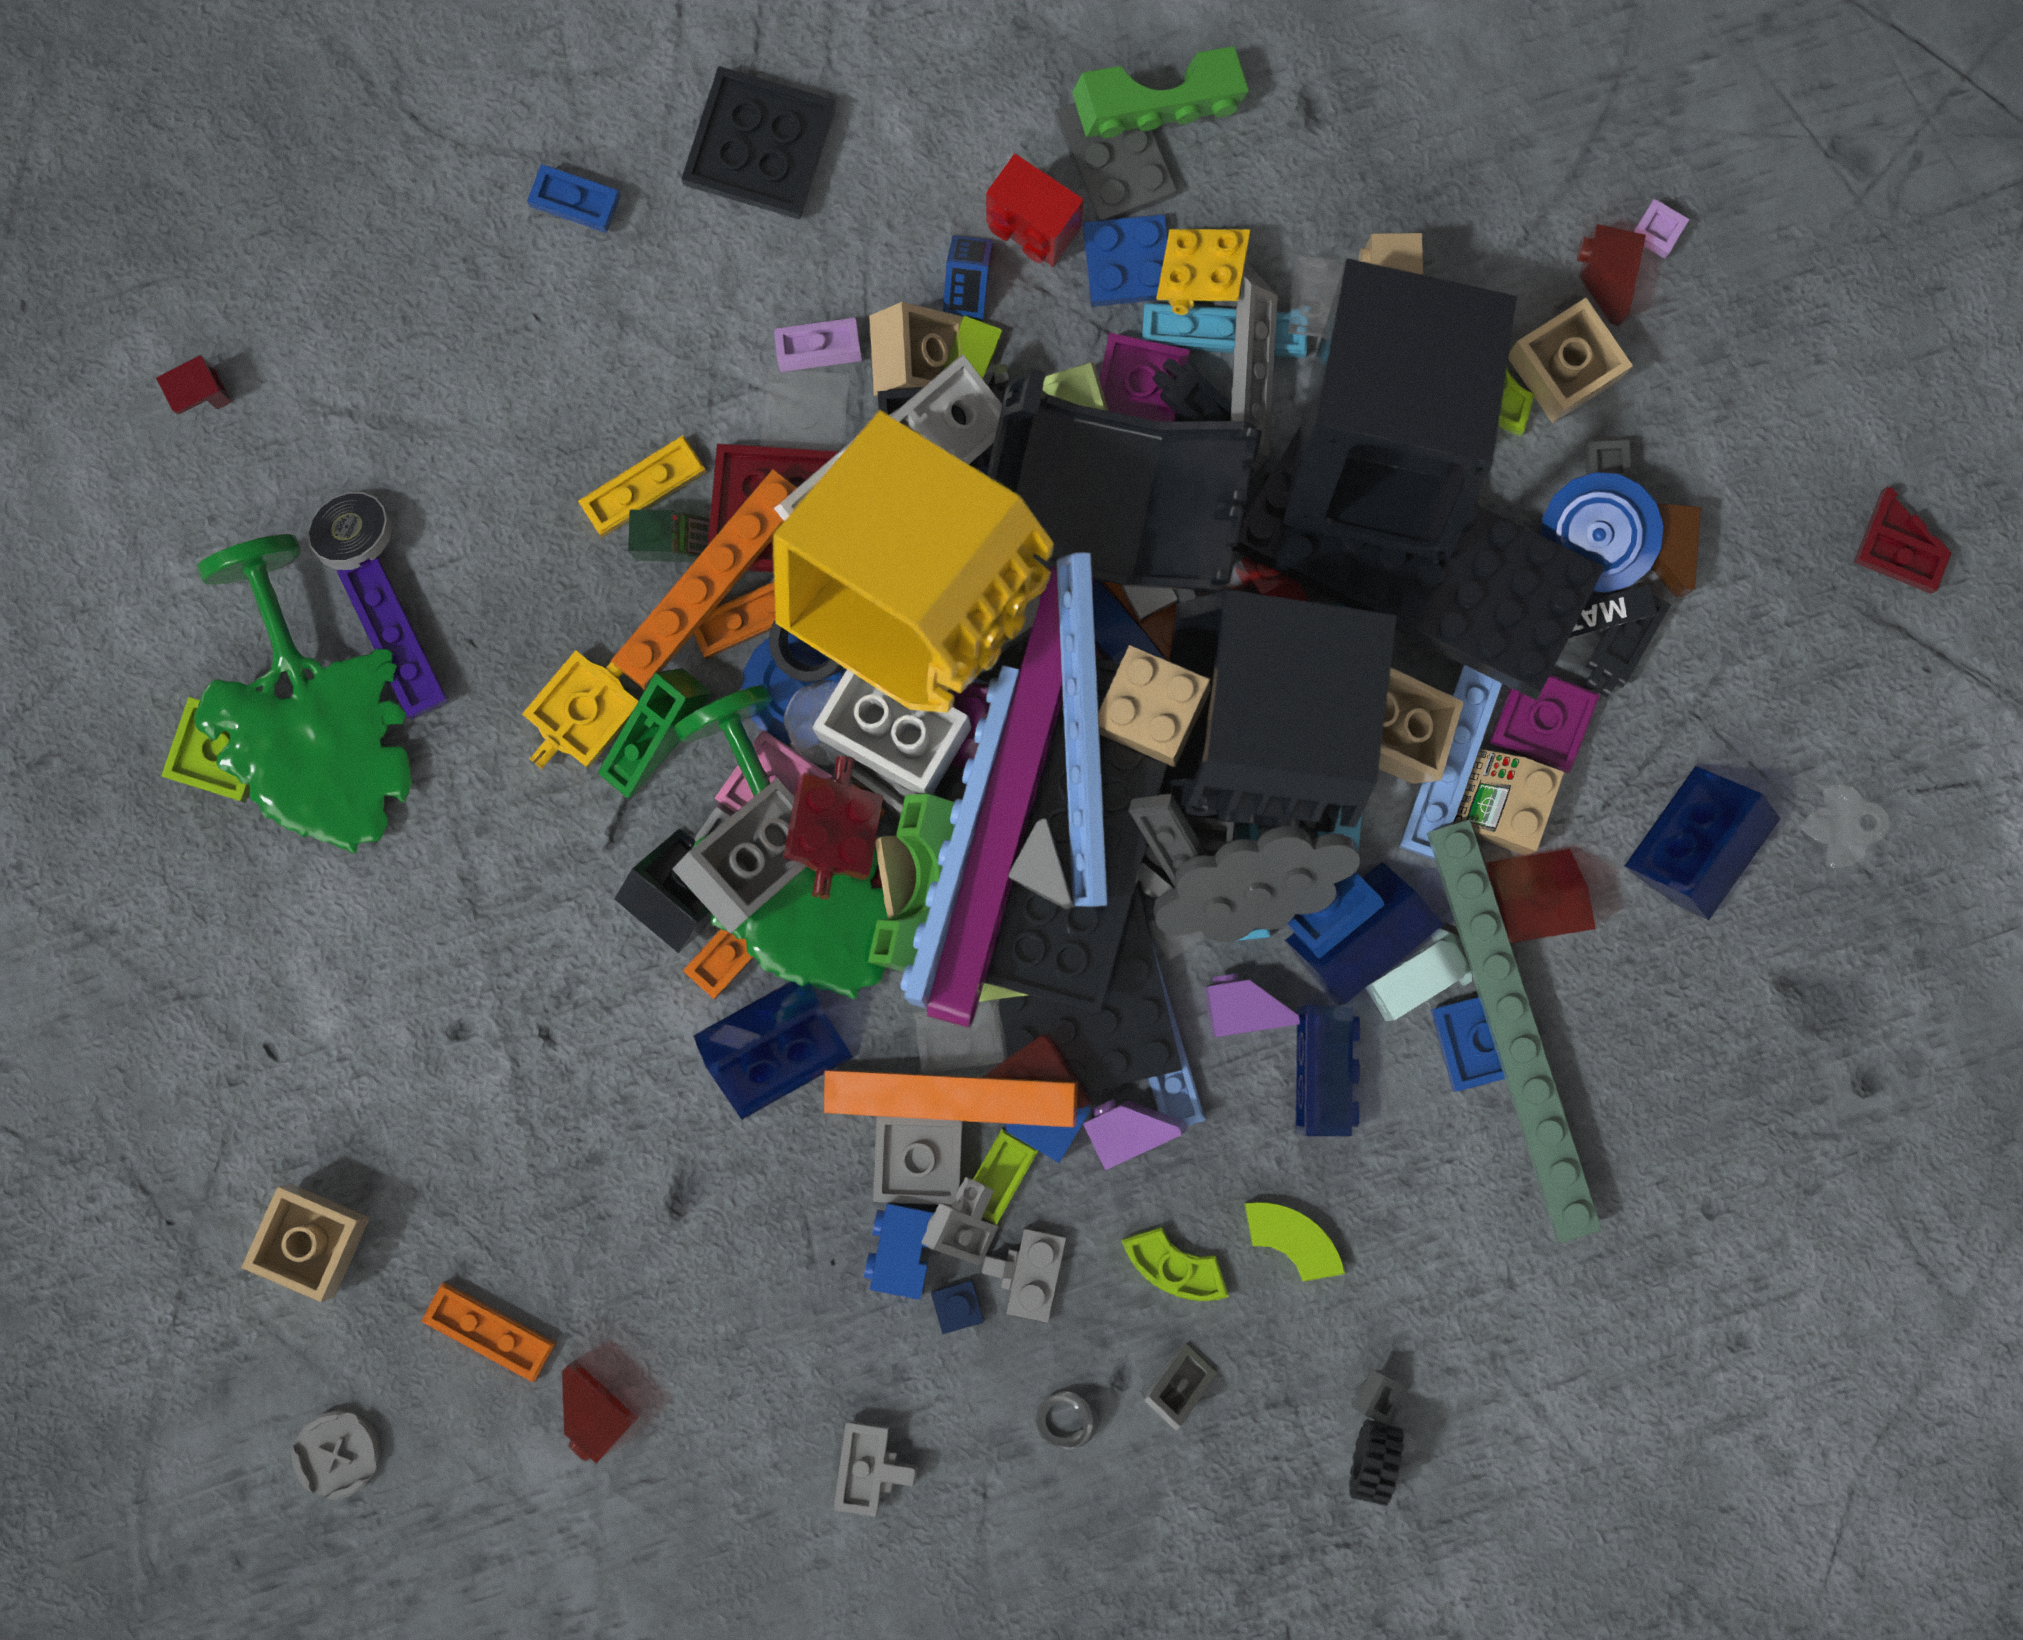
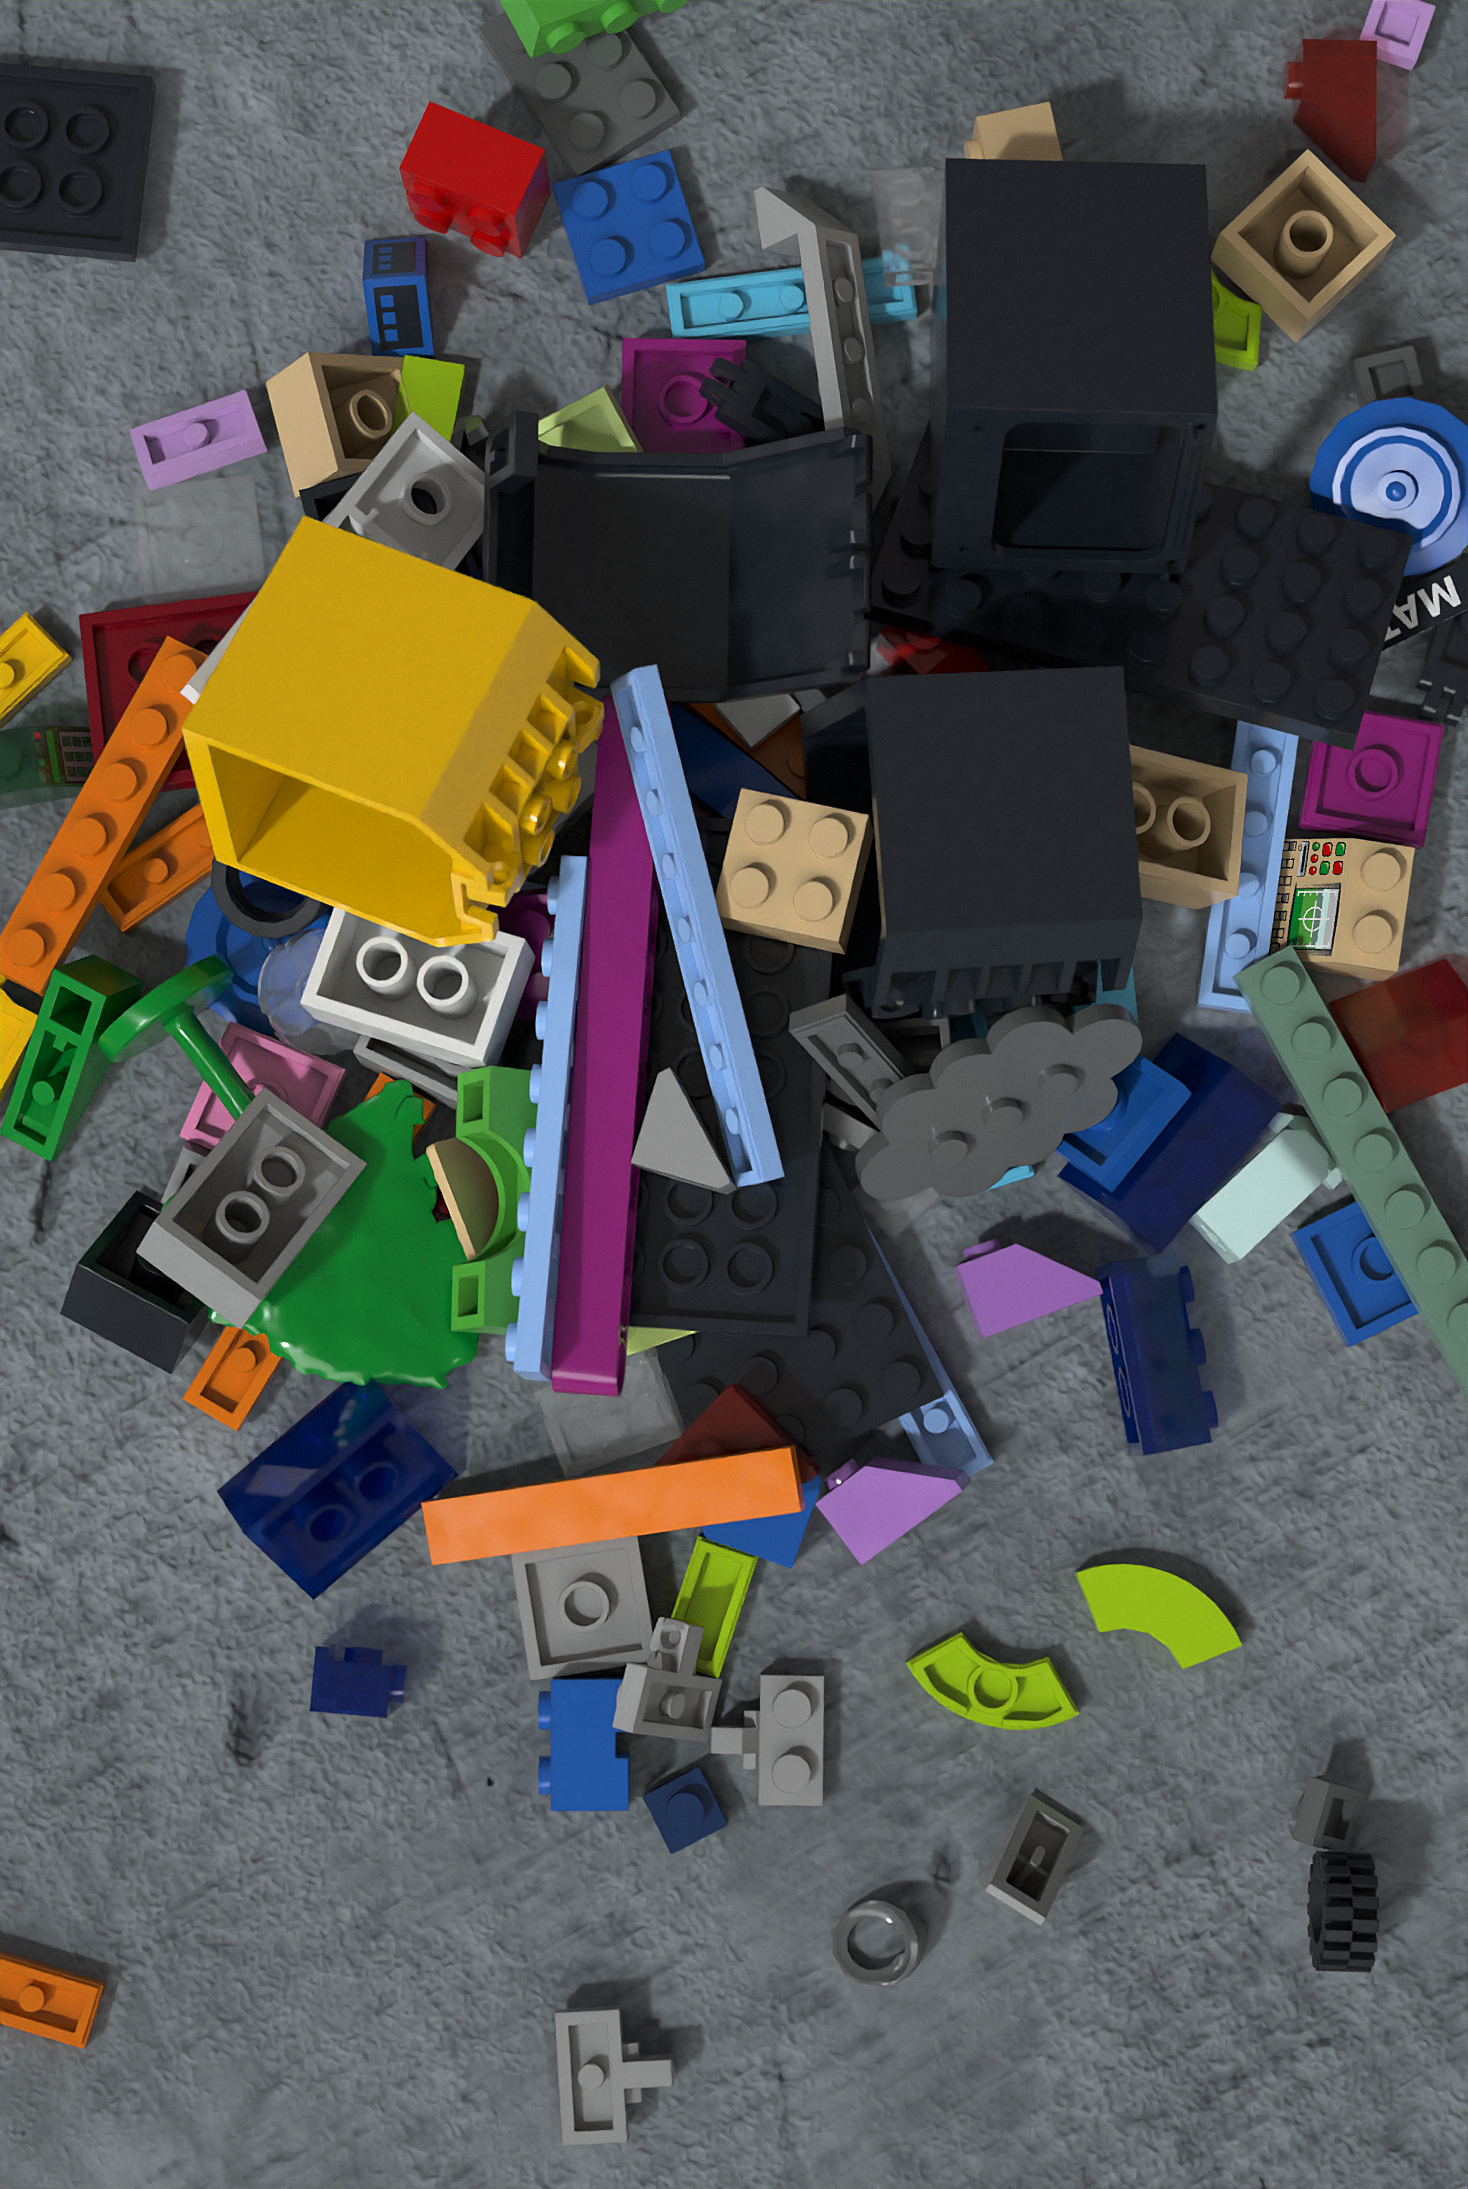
camera: 10 degrees left, 0 degrees up
(591, 1414) = (178, 2077): clear red slope -> none
(759, 1179) = (357, 1682): none -> clear blue brick
(833, 827) = (360, 1143): dark red plate -> none
(1202, 266) = (739, 214): yellow hinge -> none

